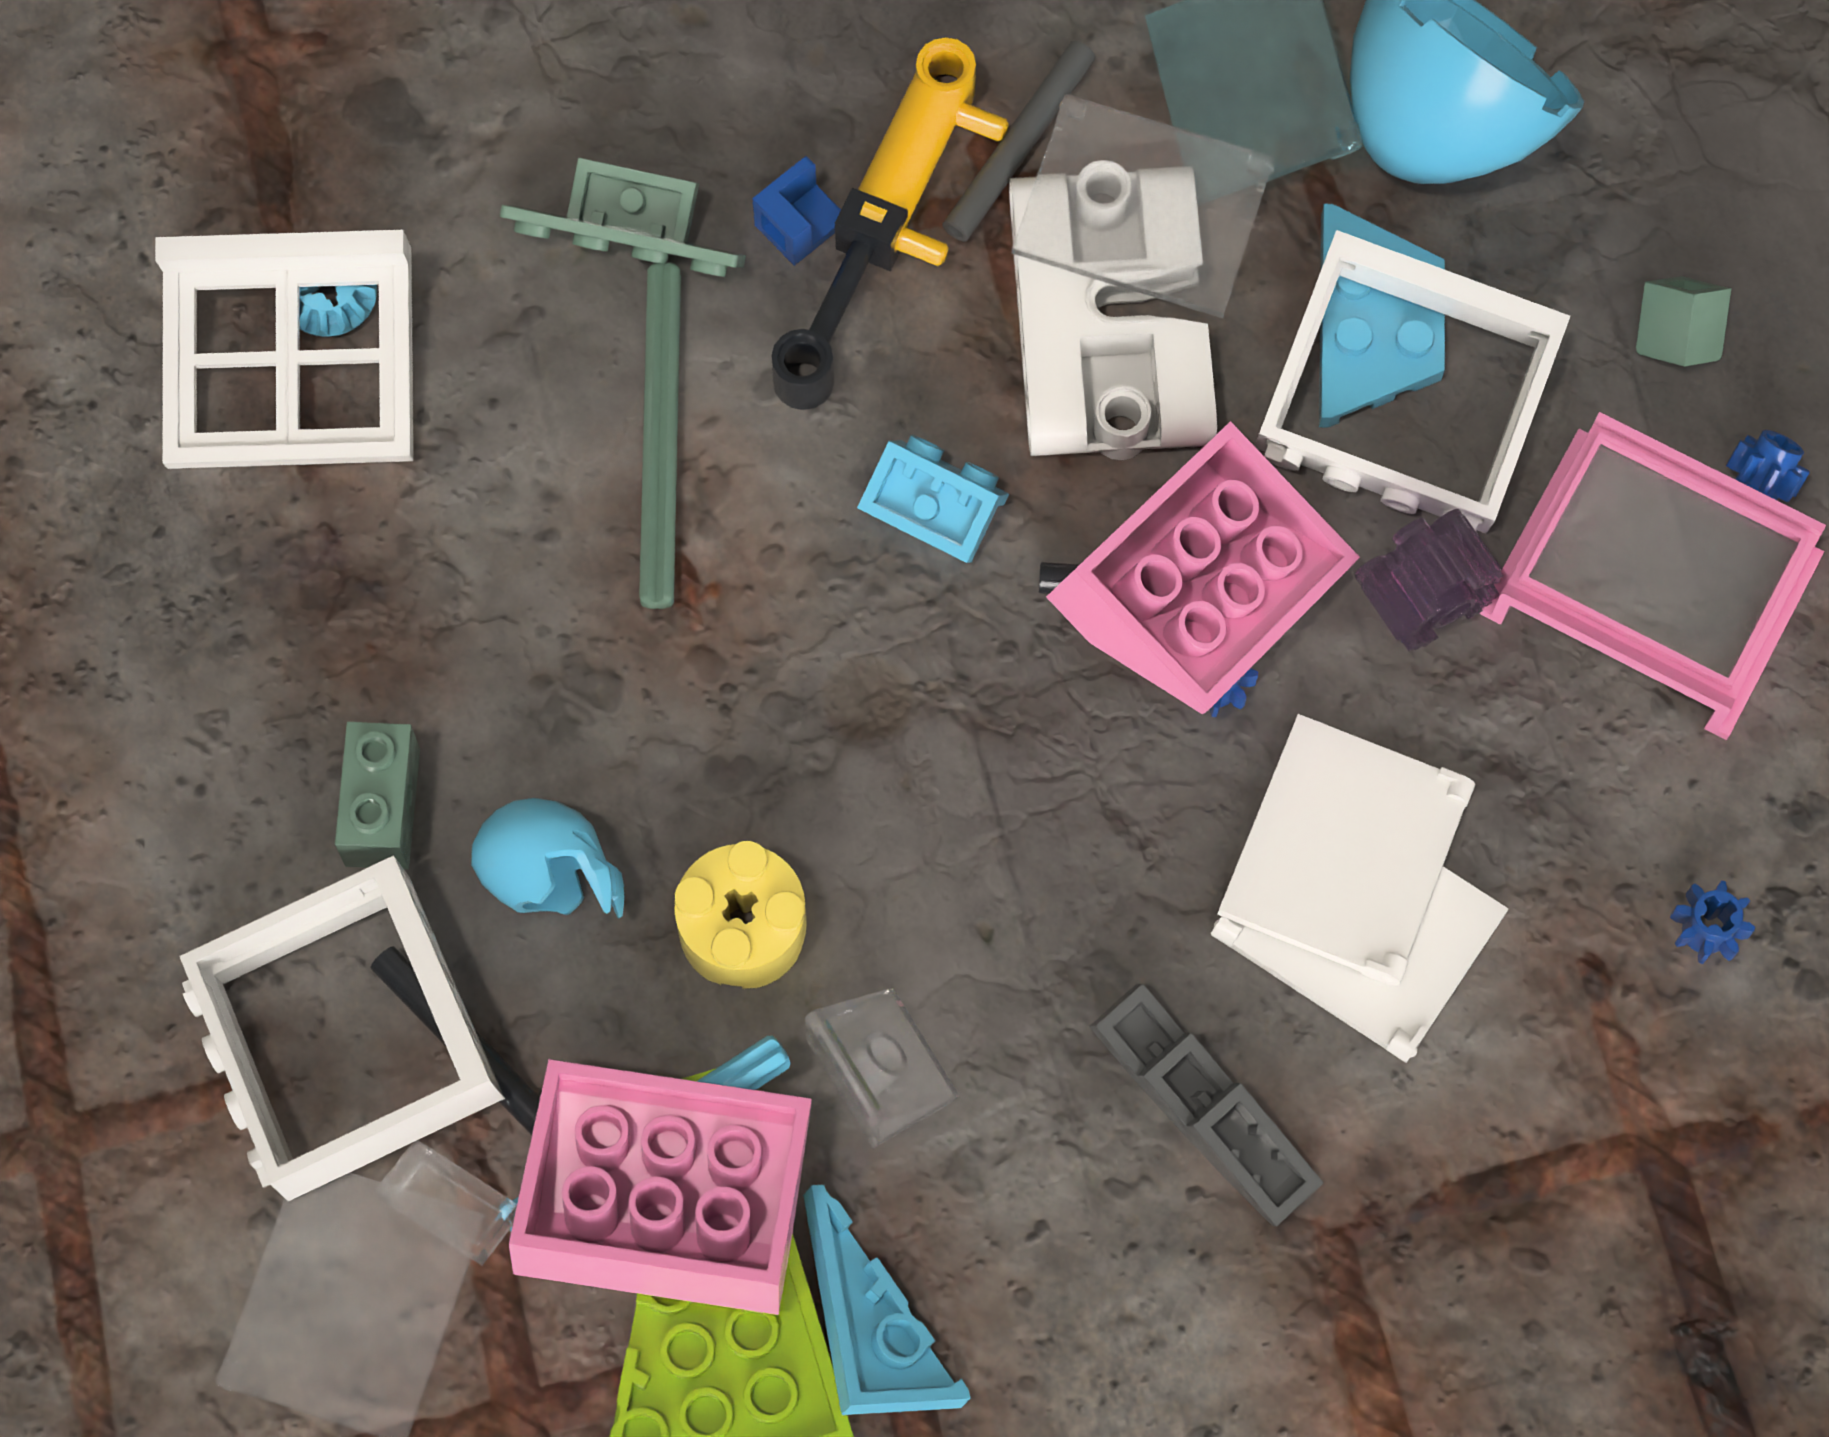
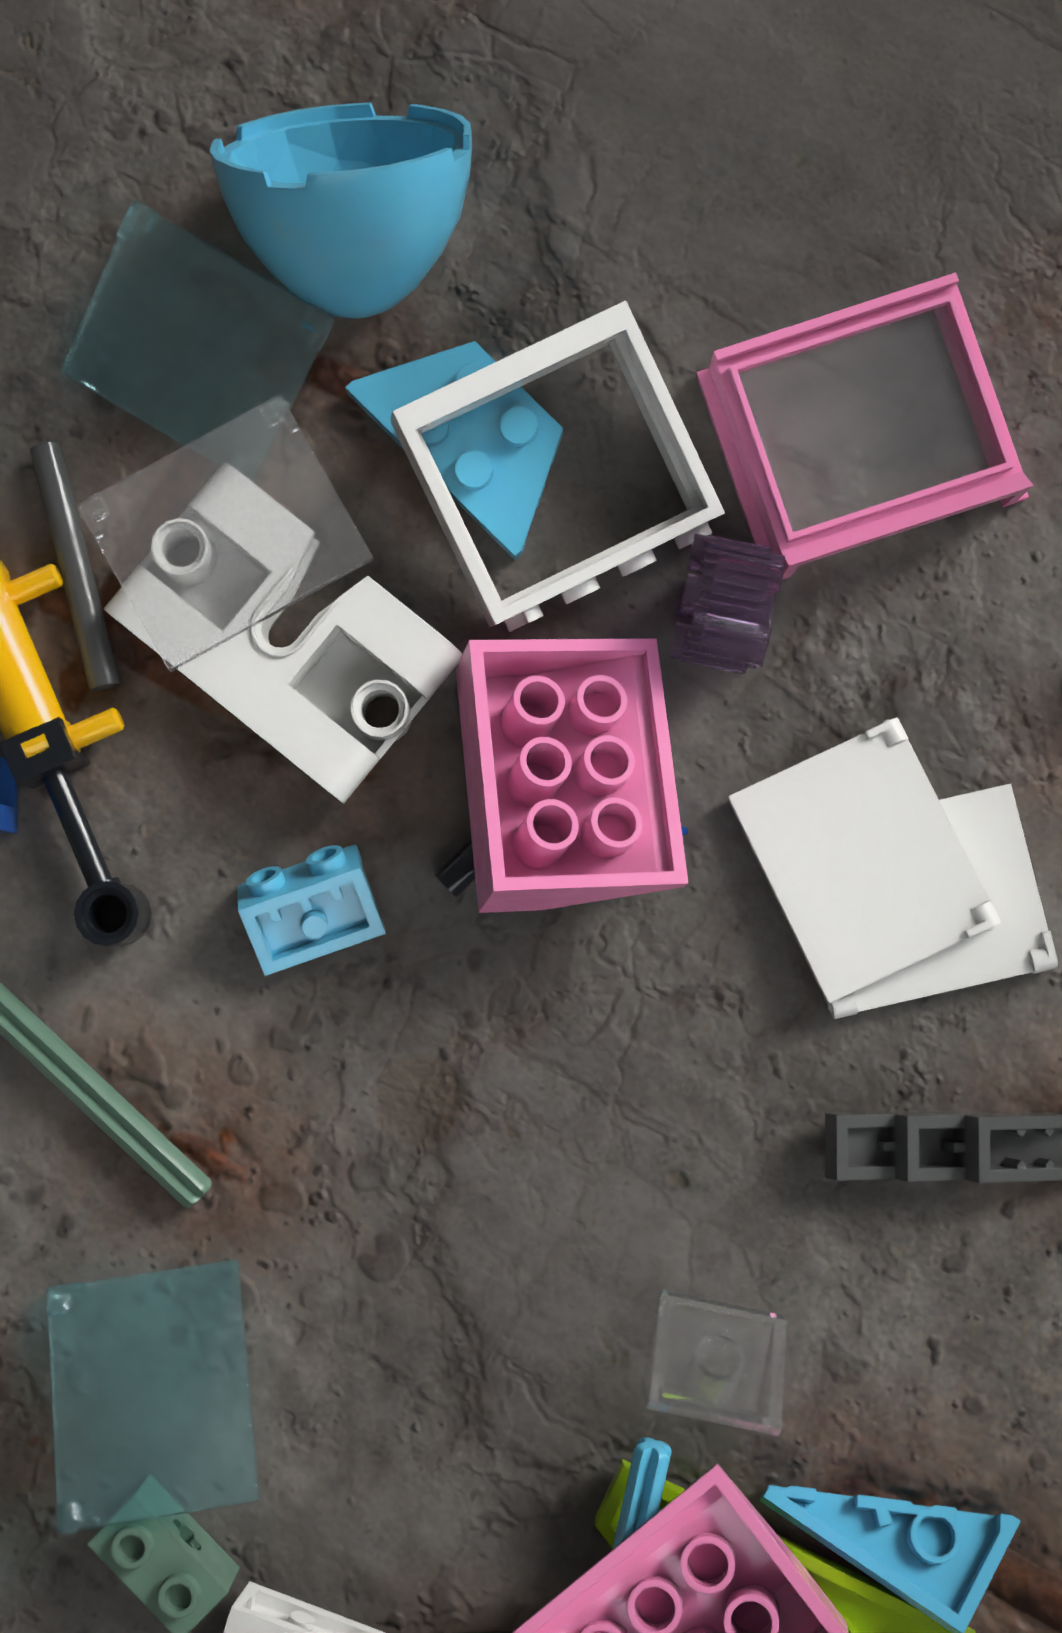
camera: 45 degrees left, 15 degrees up
(487, 682) = (150, 1396): none -> clear light blue piece
(532, 854) = (328, 1473): medium azure helmet -> none
(748, 880) = (506, 1404): light yellow brick -> none
(1683, 321) = (689, 212): sand green panel -> none
(1769, 465) = (863, 265): blue gear -> none

